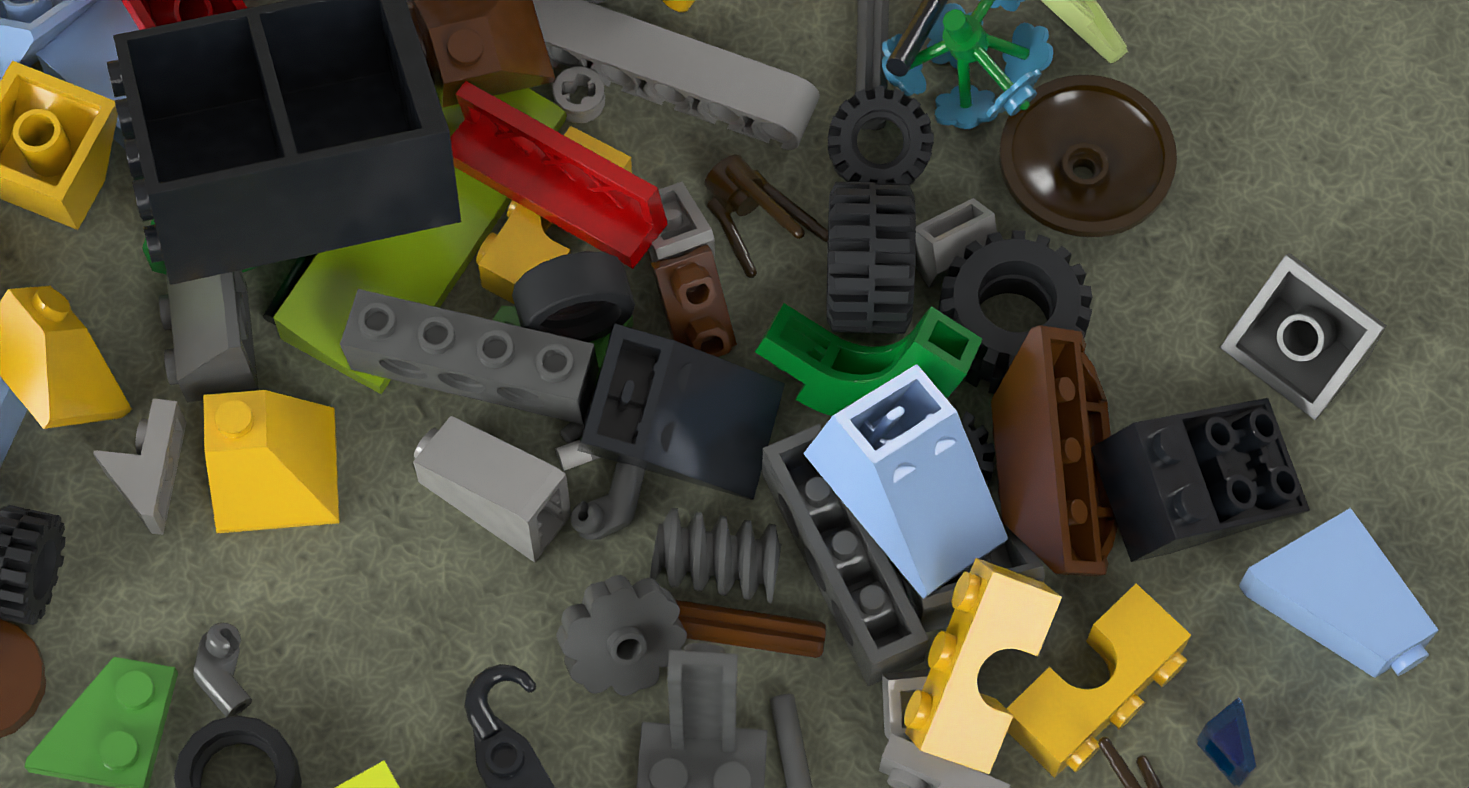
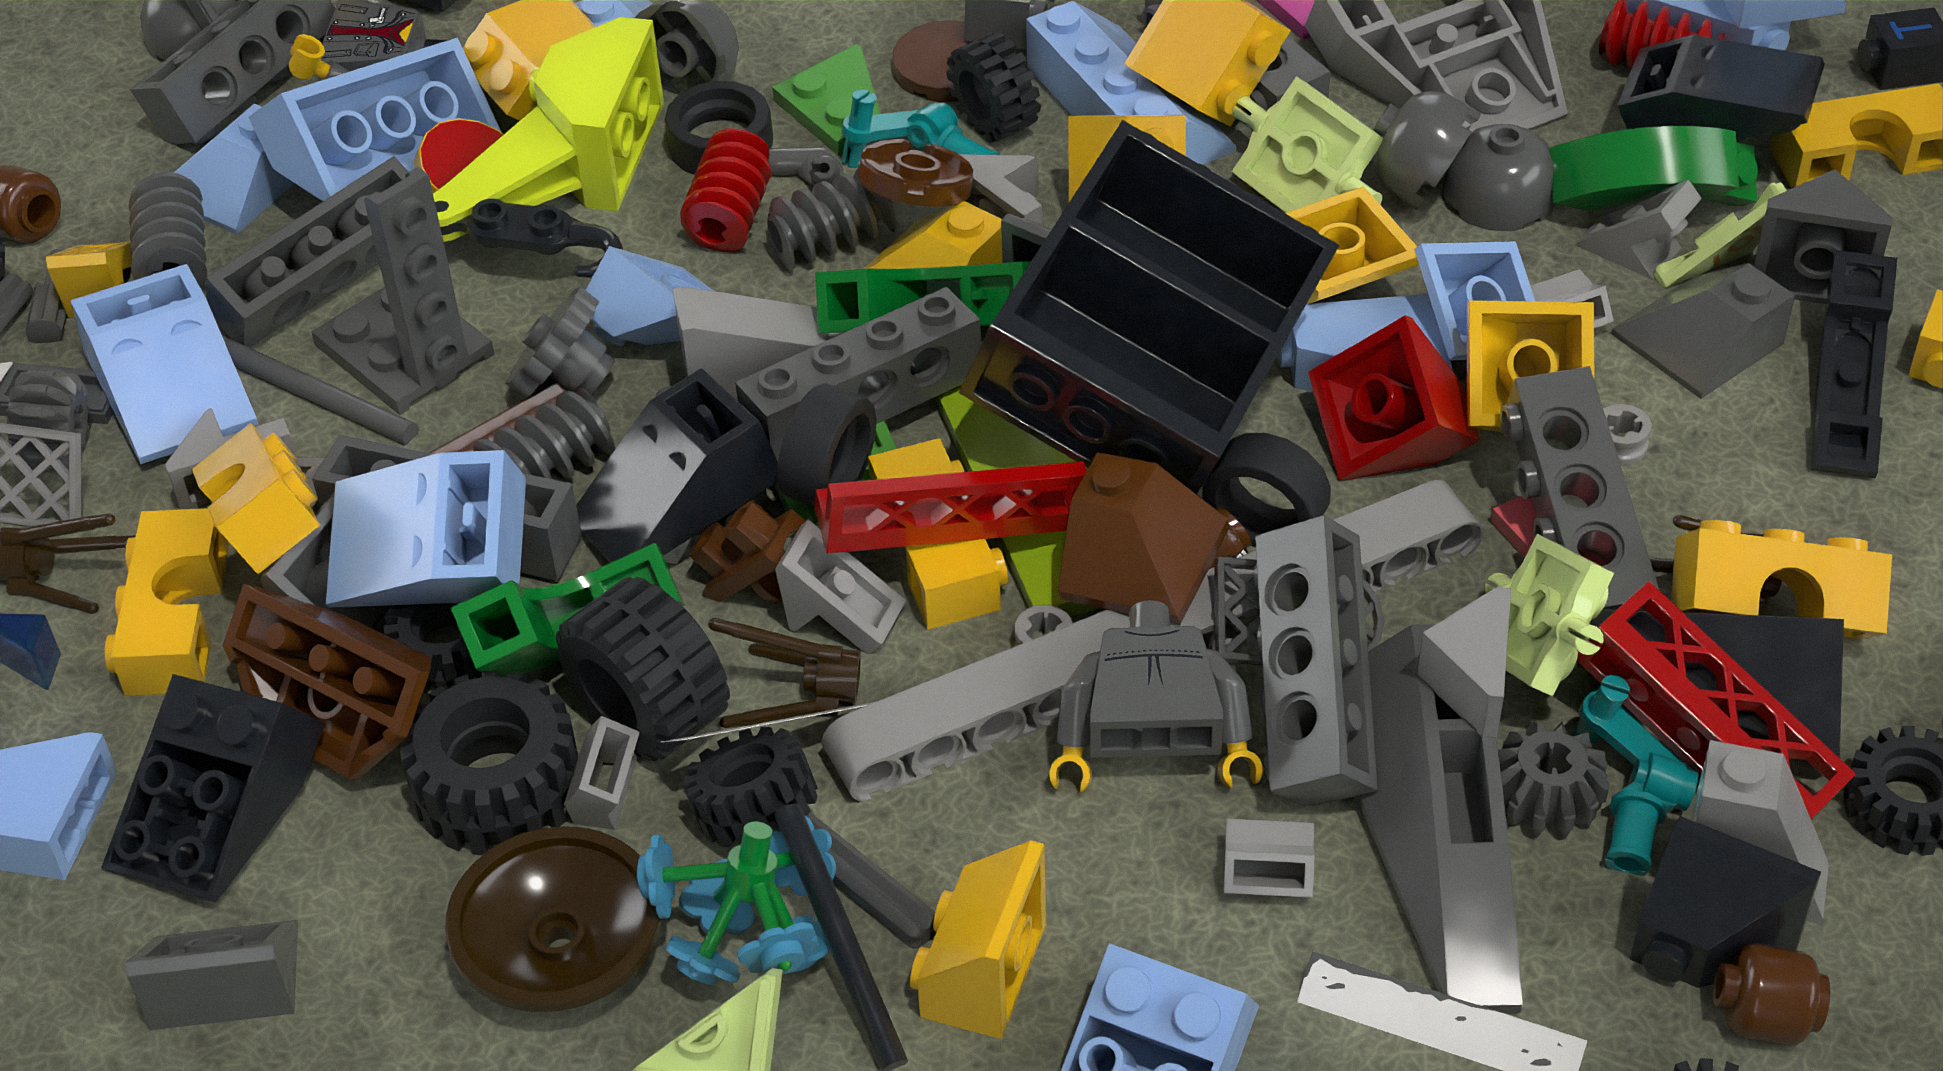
camera: 135 degrees right, 20 degrees down
(98, 600) = (930, 125): none -> teal pin
(209, 499) = (914, 176): none -> reddish brown tile
(286, 577) = (824, 215): none -> dark grey piece
(324, 683) = (726, 190): none -> red piece
(332, 395) = (860, 295): none -> green arch
(493, 609) = (637, 298): none -> light blue slope
(810, 151) = (770, 722): none -> white sticker

